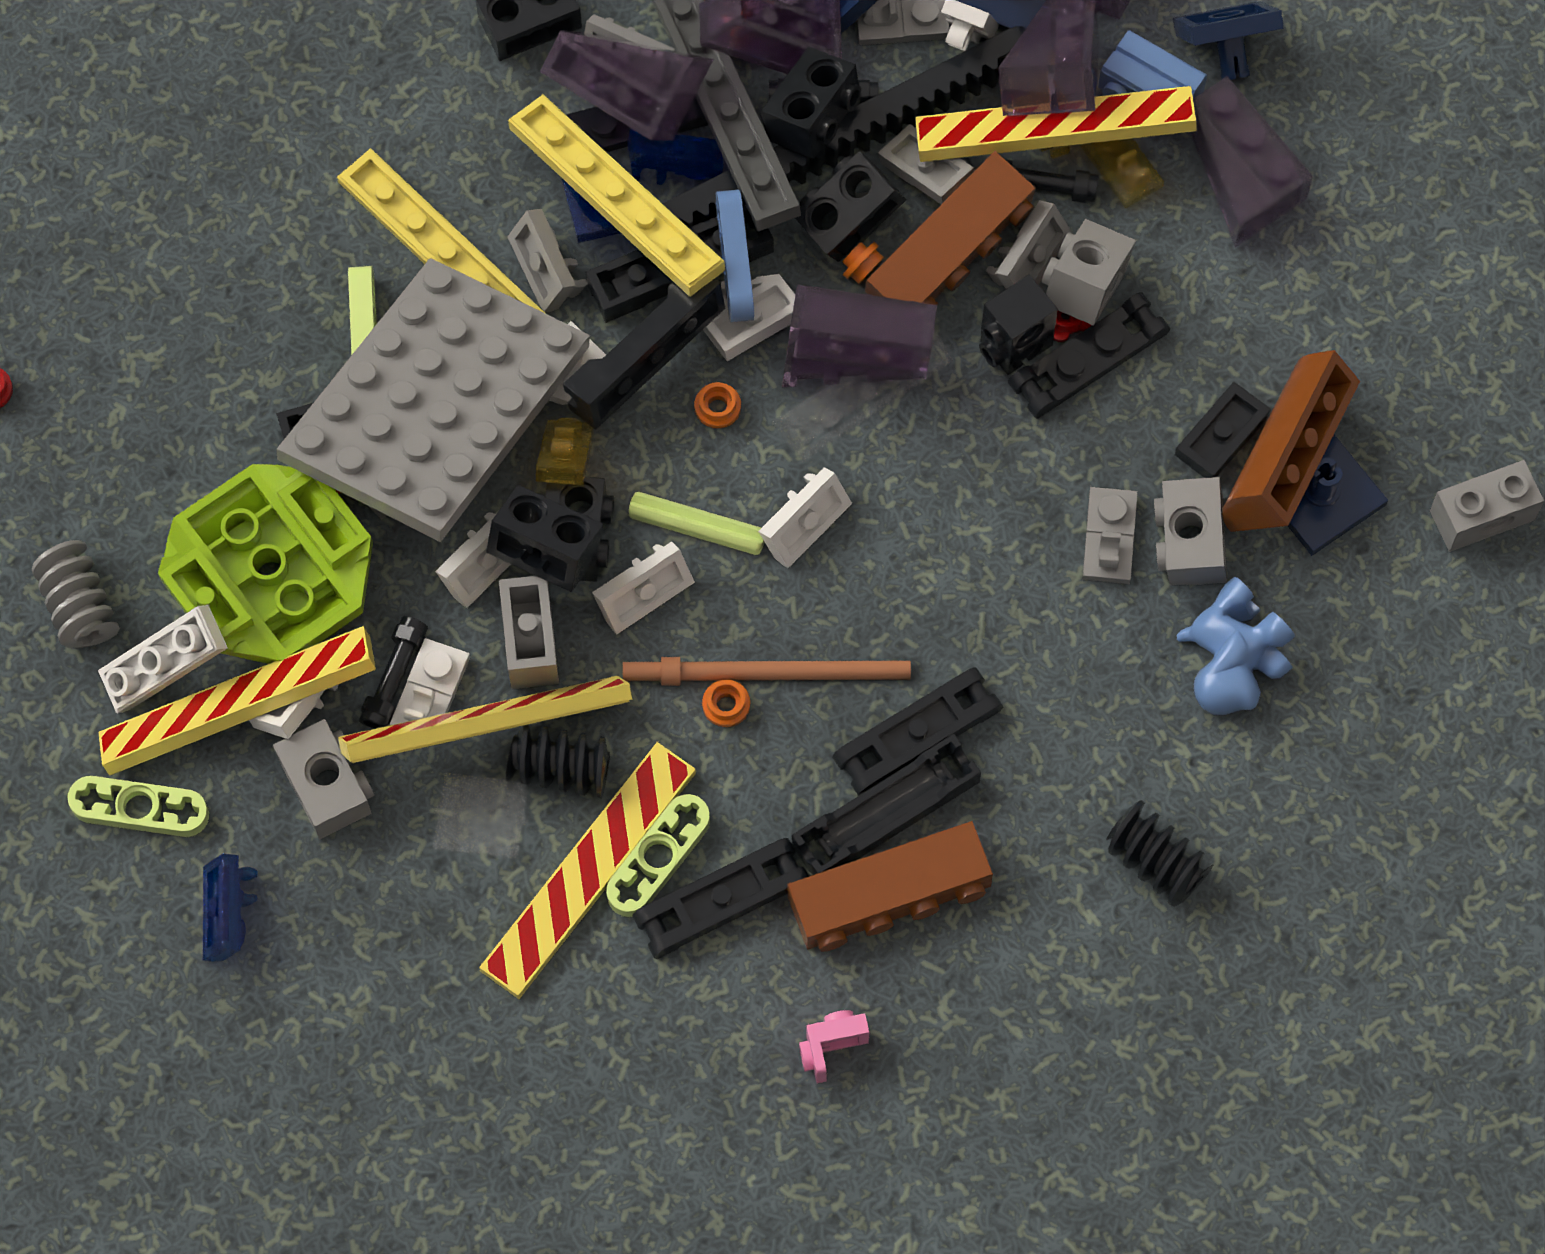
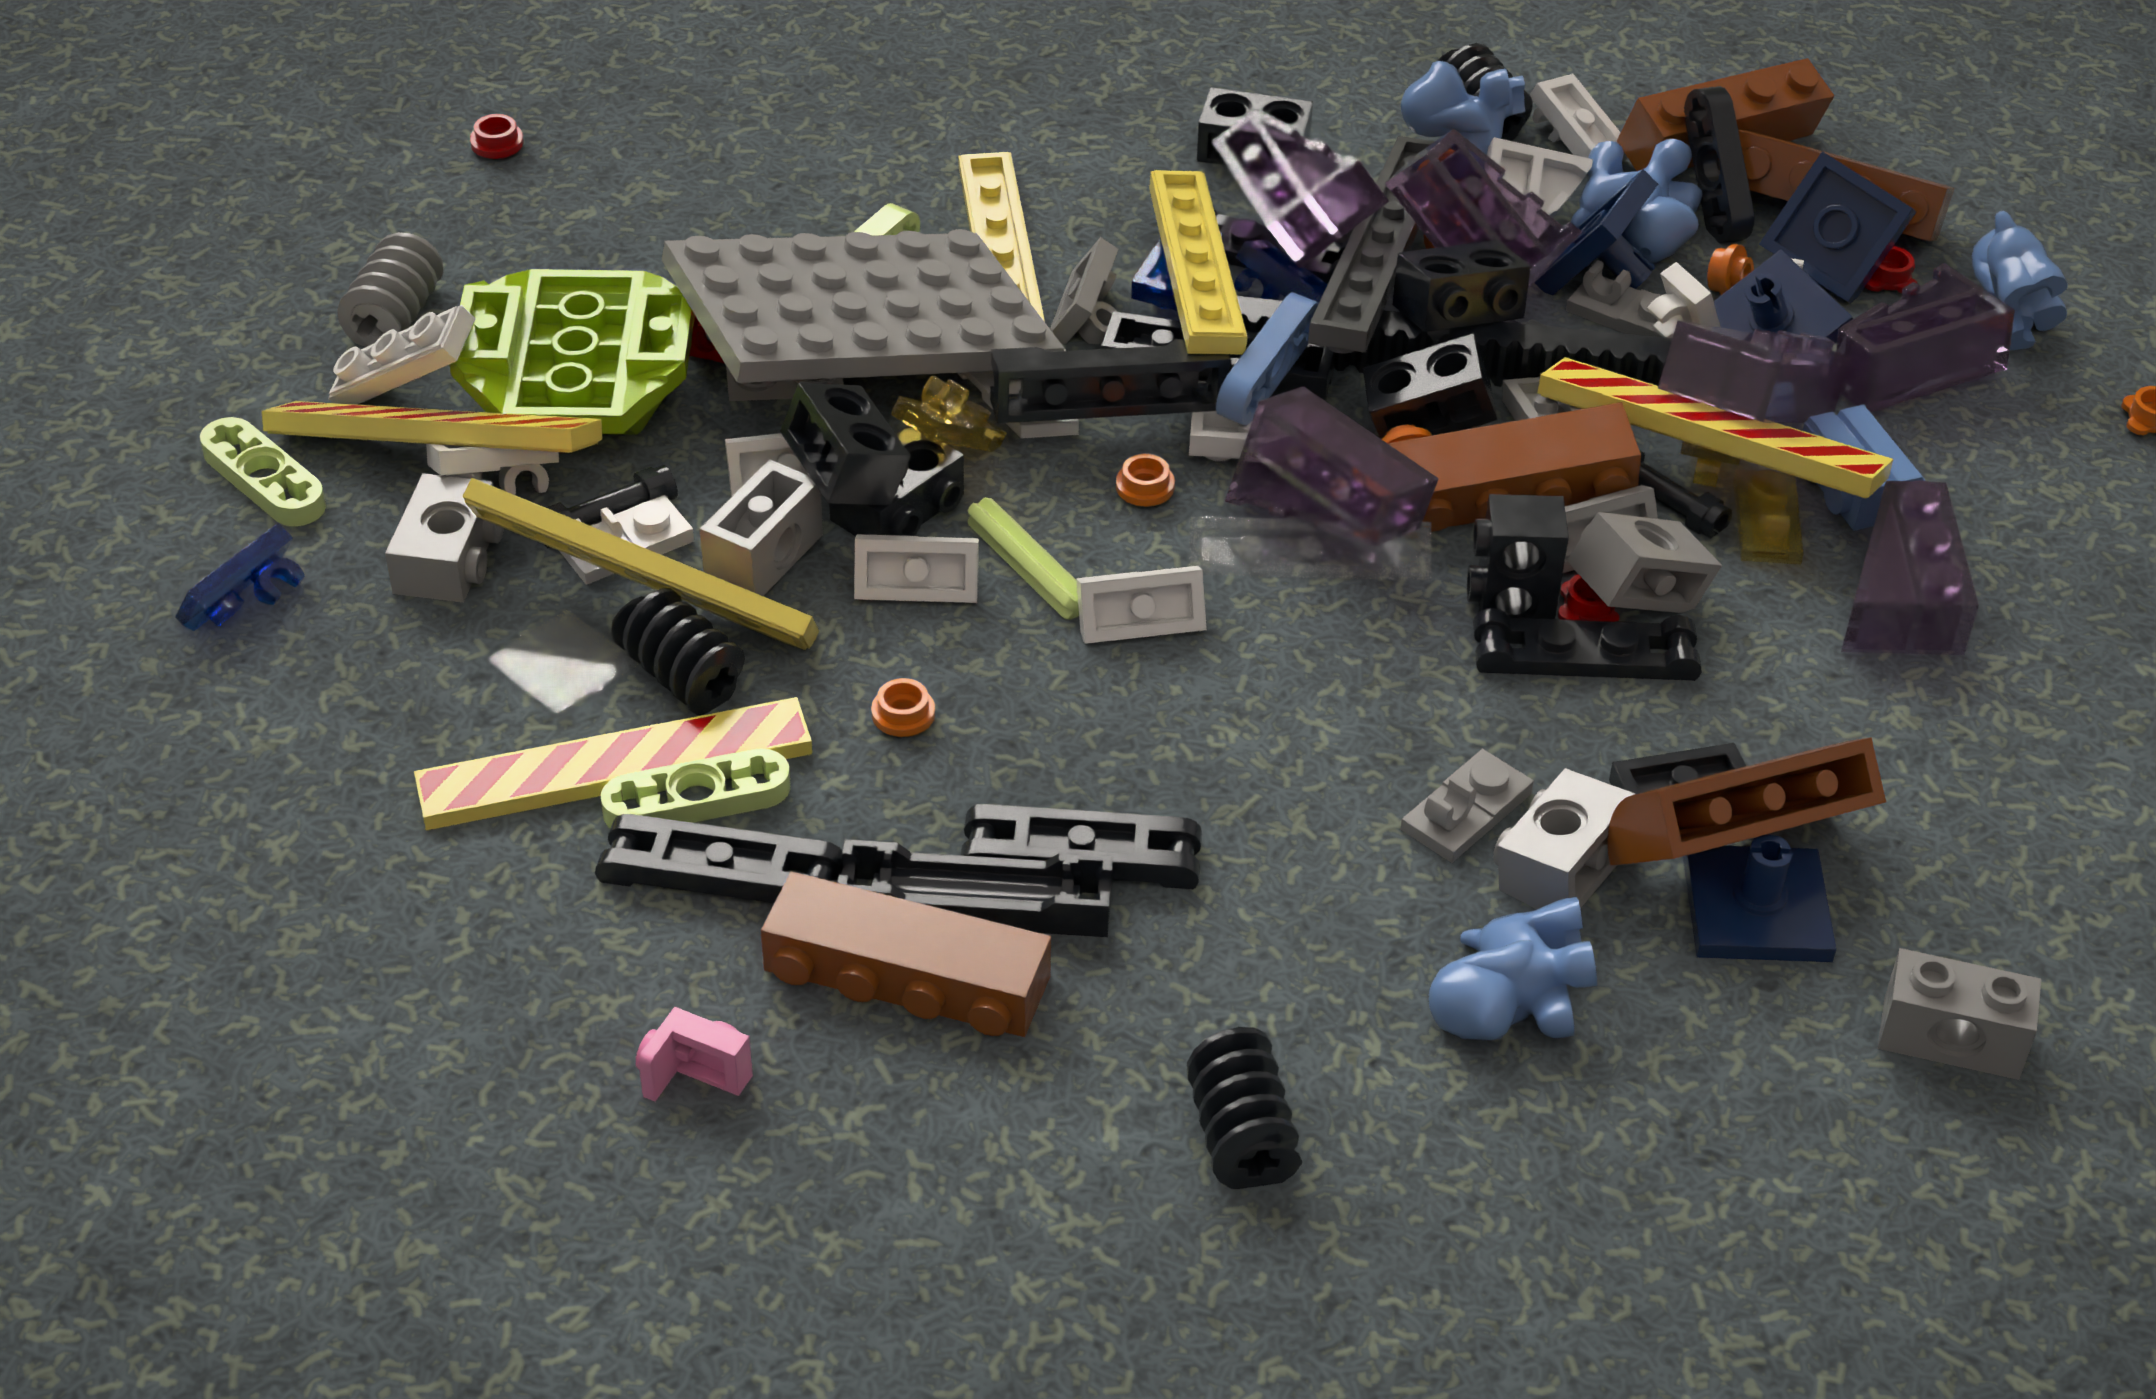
camera: 35 degrees right, 25 degrees down
(672, 671) = (880, 655): nougat bar -> none
(1227, 29) = (1983, 456): dark blue tile -> none

